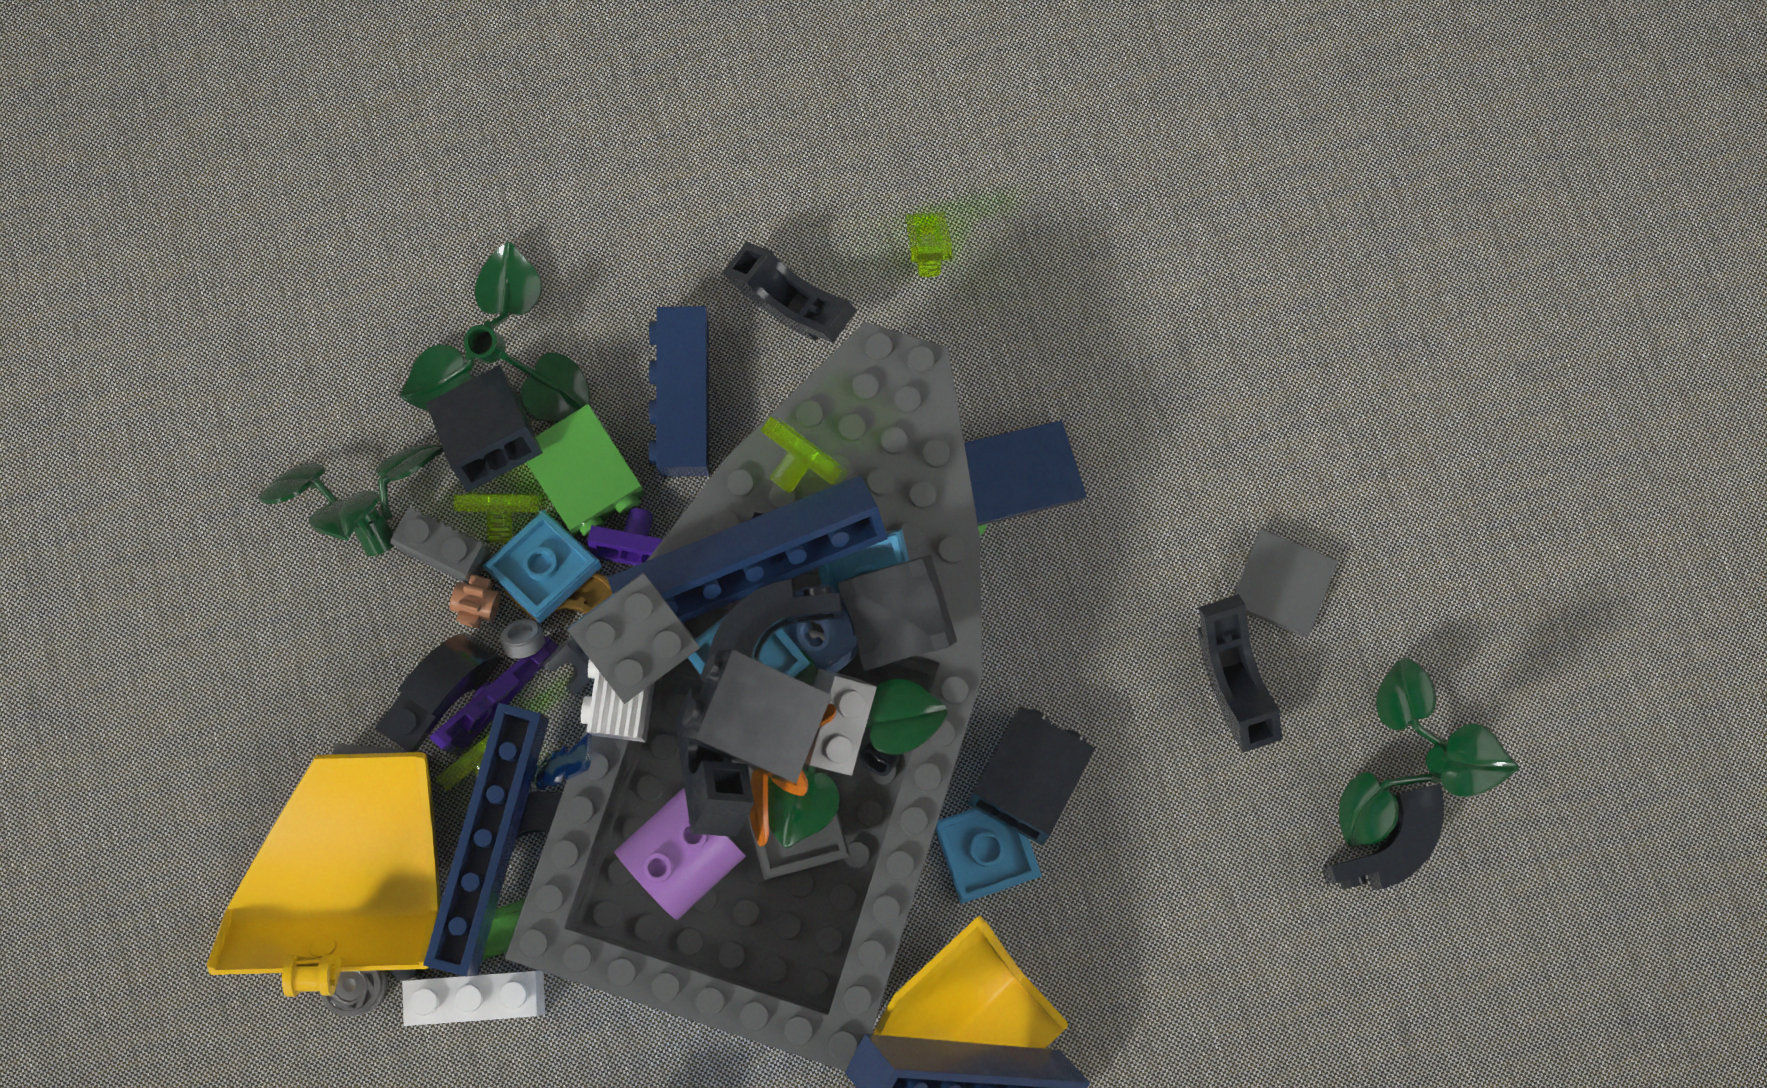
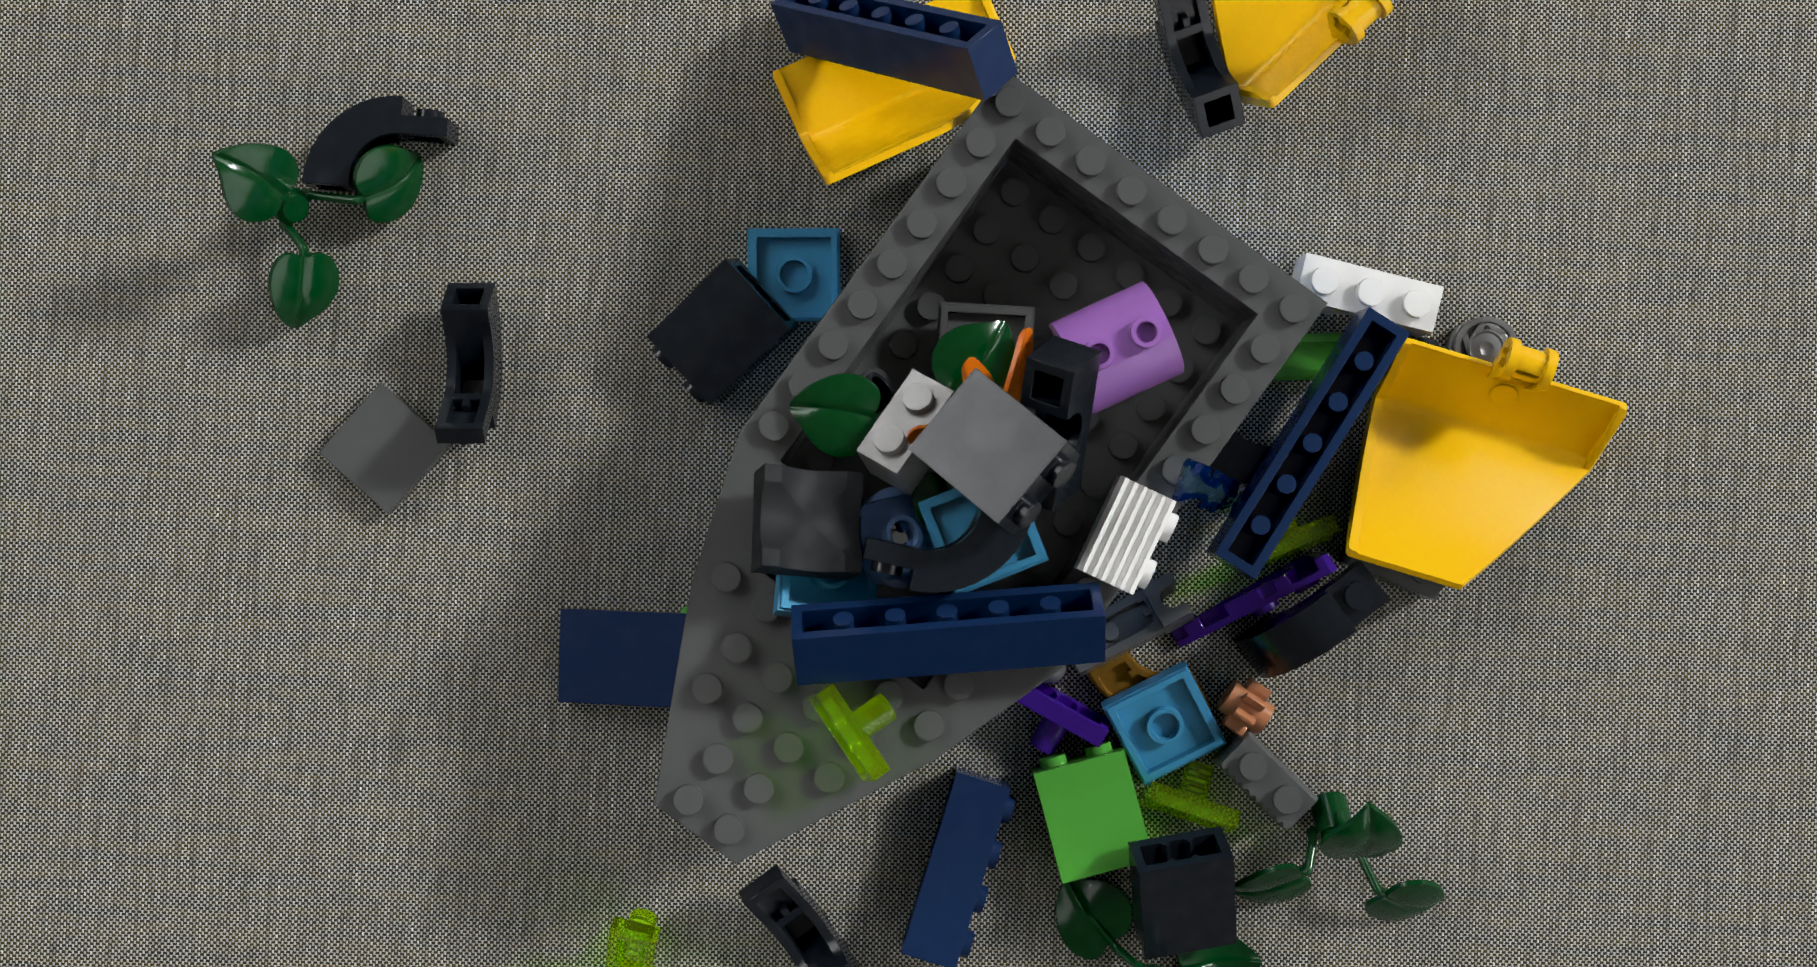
camera: 160 degrees left, 10 degrees up
(522, 638) = (1207, 651): light grey tile -> none
(633, 637) = (1098, 581): dark grey plate -> none

